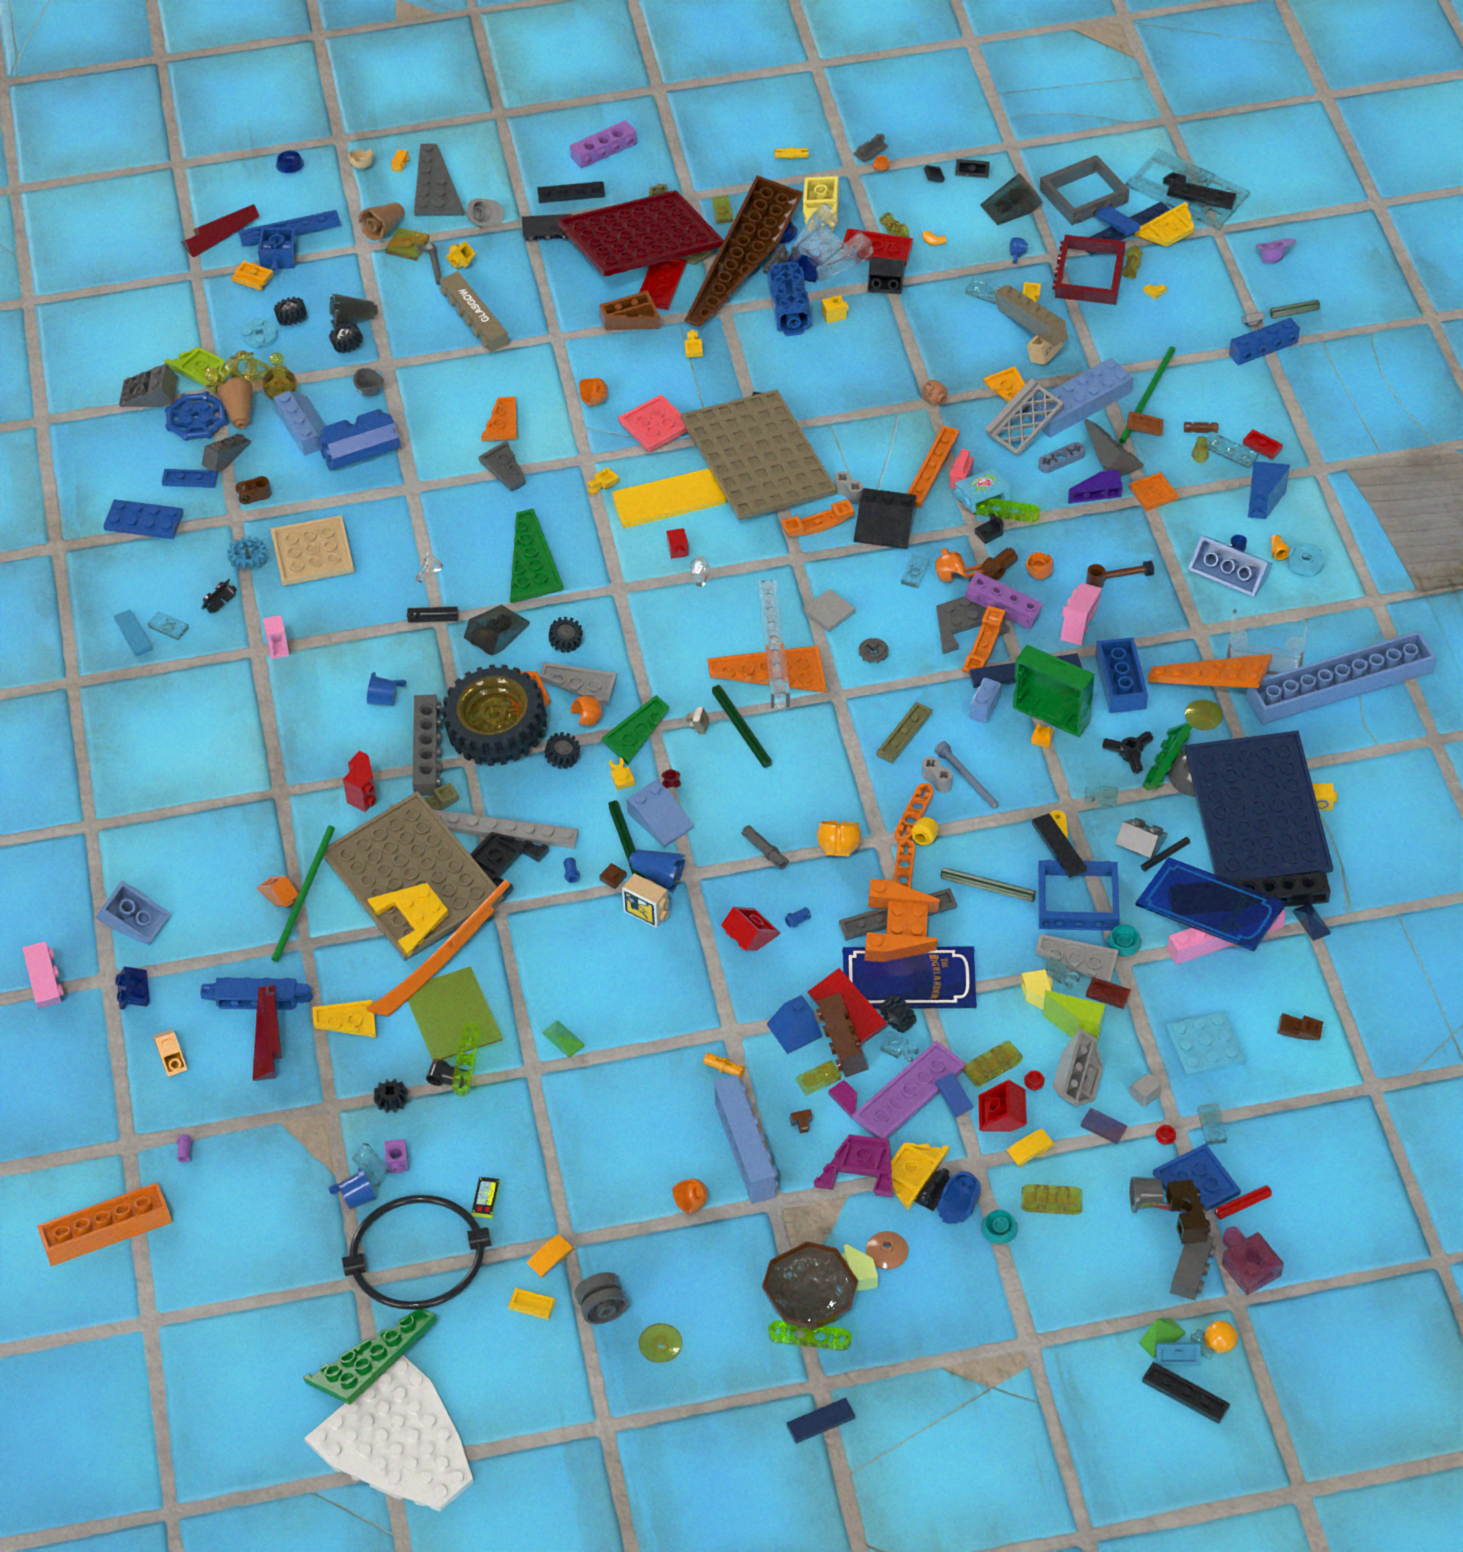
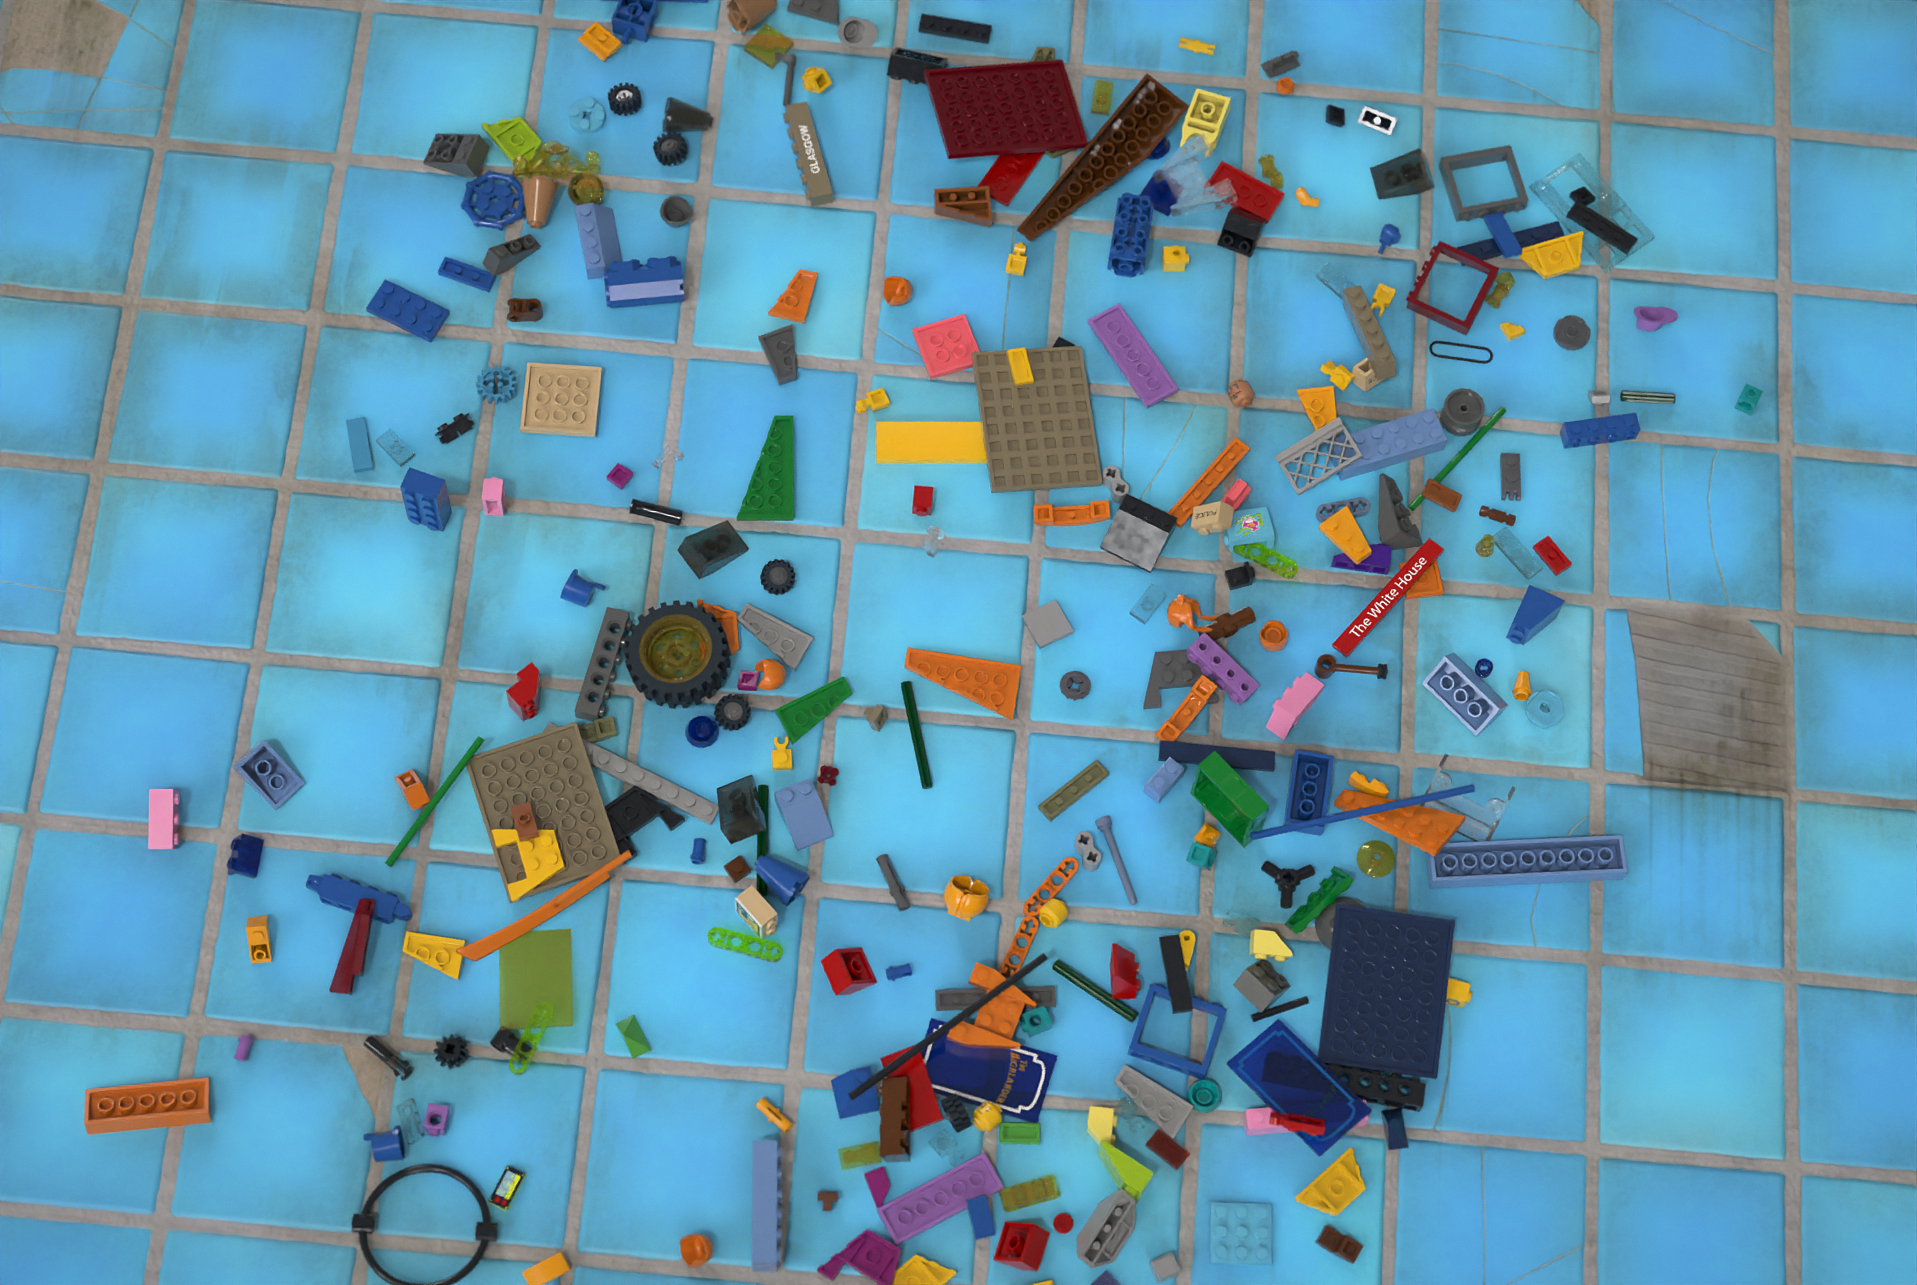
camera: 10 degrees right, 15 degrees up
(213, 648) = (426, 499): none -> blue brick
(331, 1118) = (385, 1054): none -> black piece
(388, 595) = (619, 476): none -> magenta plate
(397, 883) = (524, 821): none -> dark orange plate
(538, 774) = (701, 731): none -> clear blue hat
(568, 723) = (748, 680): none -> magenta tile
(599, 824) = (740, 809): none -> clear smoke slope
(643, 938) = (743, 948): none -> clear neon green beam
(728, 415) = (1020, 366): none -> yellow tile
(773, 644) = (976, 654): clear brick -> none
(779, 255) = (1140, 175): dark grey hinge -> none
(826, 389) = (1132, 356): none -> medium lavender plate
(862, 940) = (947, 1026): none -> black piece
(928, 1010) = (987, 1116): none -> yellow head
(943, 921) = (1040, 1014): none -> teal brick
(947, 487) = (1212, 517): none -> tan brick
(963, 1018) = (1019, 1133): none -> bright green tile
(1009, 859) = (1123, 973): none -> red slope
(1017, 357) = (1339, 374): none -> yellow plate
(1044, 749) = (1201, 856): none -> teal brick
(1072, 469) = (1346, 535): none -> light orange wing
(1117, 322) = (1461, 345): none -> black piece
(1130, 511) = (1387, 598): none -> red tile
(1134, 803) = (1268, 944): none -> light yellow slope
(1138, 355) = (1462, 412): none -> dark grey wheel
(1166, 657) = (1361, 784): none -> light orange slope
(1176, 673) = (1362, 812): none -> blue piece
(1199, 396) = (1510, 476): none -> dark grey hinge
(1207, 279) = (1571, 333): none -> dark grey tile
(1220, 928) = (1298, 1123): none -> red plate
(1276, 981) = (1335, 1186): none -> yellow wing
(1383, 287) = (1748, 399): none -> teal brick

